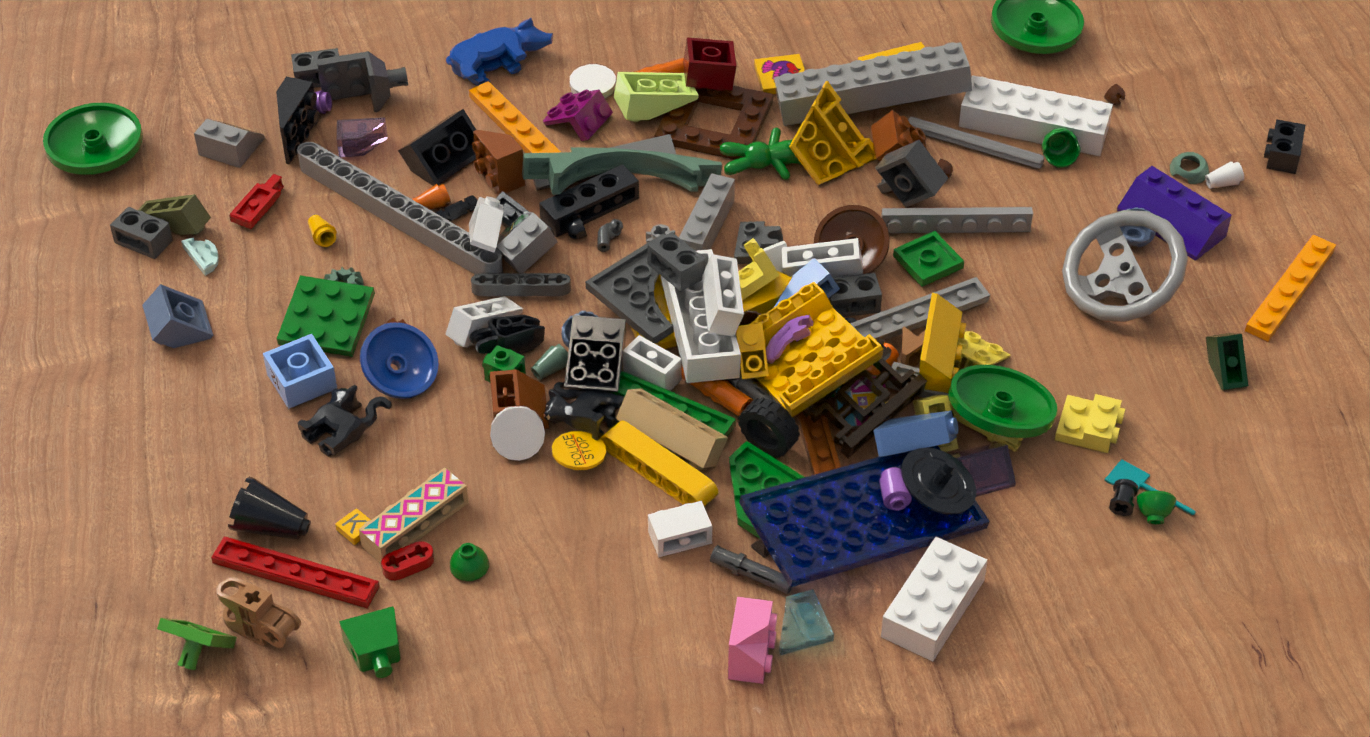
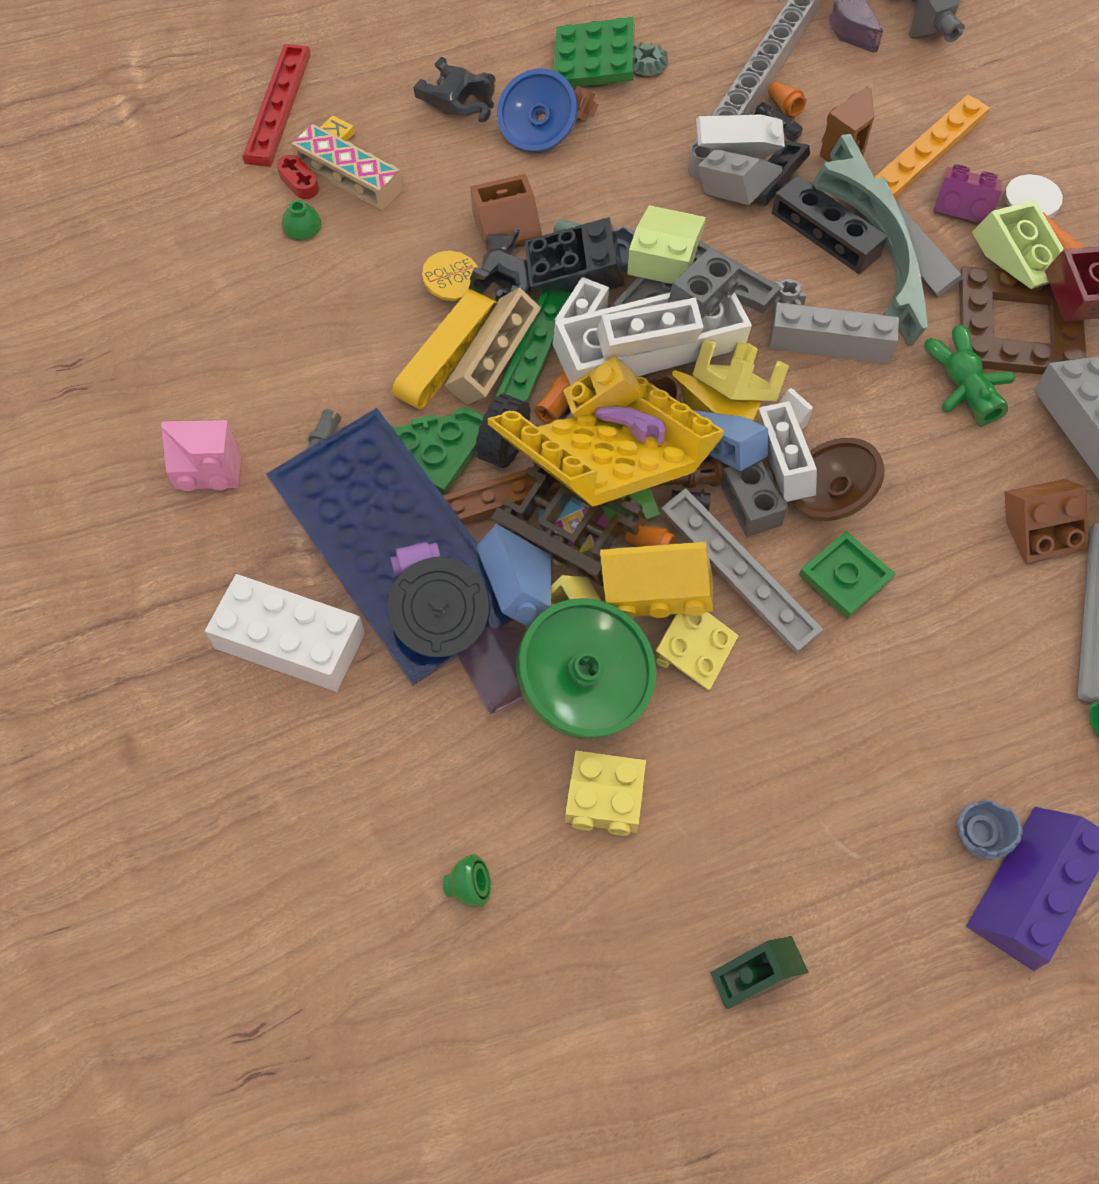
camera: 80 degrees right, 15 degrees up
(195, 638) = (183, 46): bright green tile -> none
(256, 614) = (204, 78): medium nougat piece -> none
(267, 513) = (330, 57): black cone -> none
(300, 371) = (509, 45): light blue brick -> none
(322, 232) = (710, 26): yellow cone -> none
(373, 641) = (193, 169): green torso -> none
(441, 149) = (851, 74): black slope -> none
(476, 316) = (619, 167): white slope -> none
(496, 49) = (1037, 98): blue animal -> none
(501, 360) = (554, 189): green brick -> none
(515, 332) = (597, 189): black hinge -> none
(517, 433) = (459, 218): white tile -> none
(520, 284) = (676, 190): dark grey beam -> none
(576, 229) = (783, 224): black hinge -> none
(605, 287) = (664, 244): none -> yellowish green slope
(608, 232) = (786, 251): dark grey arm -> none
(679, 528) = (360, 379): white brick -> none
(763, 234) = (820, 388): dark grey plate -> none
(804, 623) = (246, 510): clear light blue wing -> none
(829, 140) = (1010, 428): yellow wedge -> none
(910, 174) = (972, 524): dark grey hinge -> none
(946, 167) = (1022, 575): reddish brown hinge -> none
(958, 219) = (929, 607): light grey plate -> none
(1122, 270) = (887, 813): light grey piece -> none
(1122, 502) = (478, 840): black bush -> none
(1125, 470) = (523, 851): teal piece -> none
(1290, 288) = (952, 1073): light orange plate -> none

